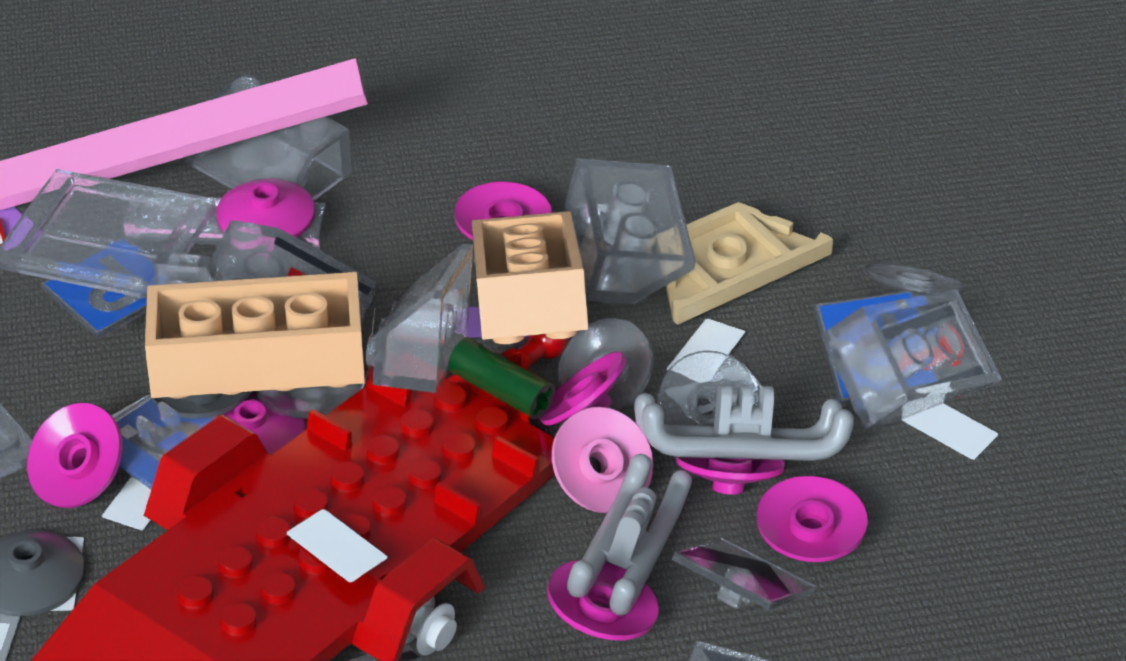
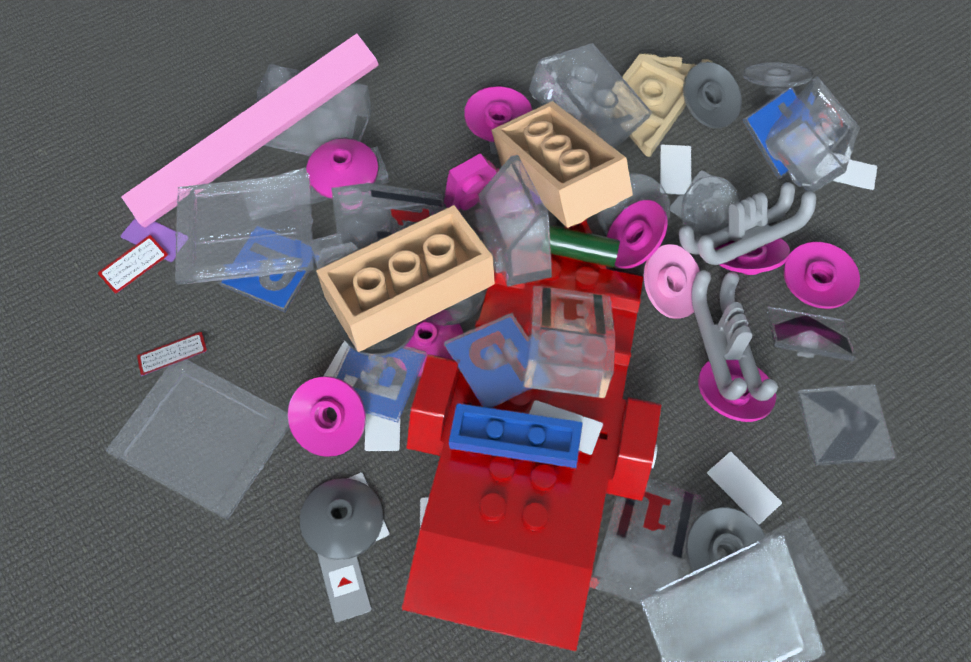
camera: 25 degrees left, 20 degrees up
(267, 524) = (516, 435): none -> blue plate
(306, 452) = (492, 359): none -> clear piece
(398, 458) = (570, 342): none -> clear slope
(400, 260) = (468, 181): none -> dark pink wing
(811, 258) = (712, 95): none -> dark grey dish

